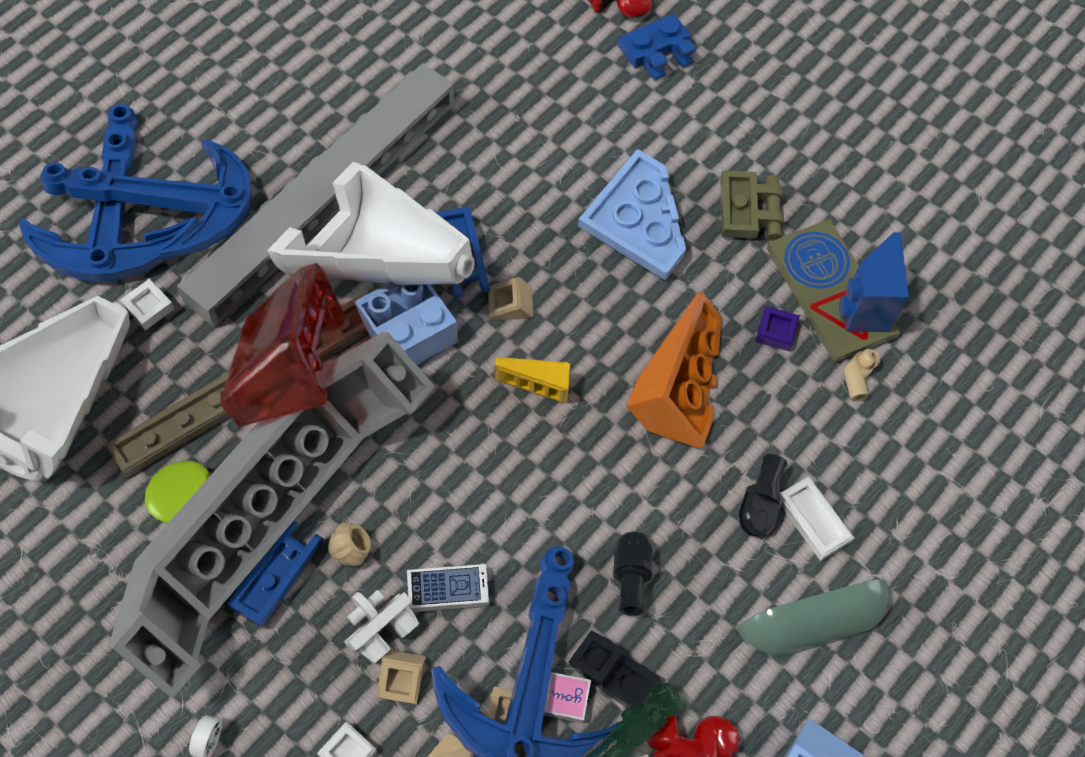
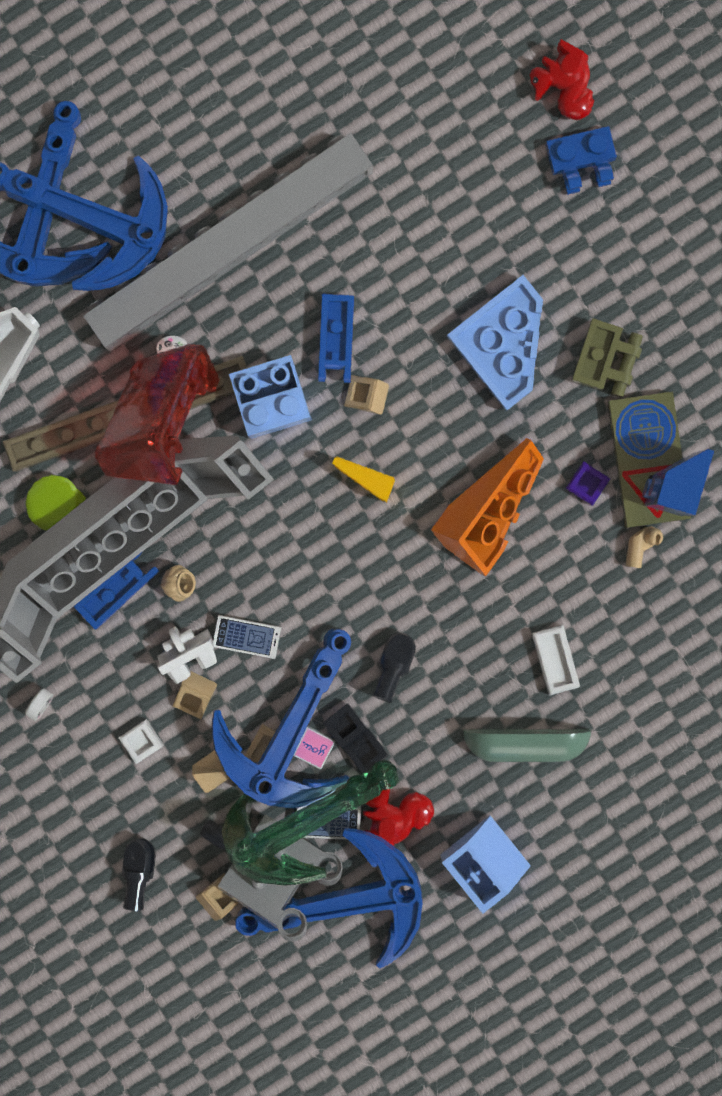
camera: 20 degrees right, 25 degrees up
(147, 304) = (57, 318): white plate -> none
(378, 238) = (258, 325): white cone -> none
(763, 500) = (517, 637): black arm -> none

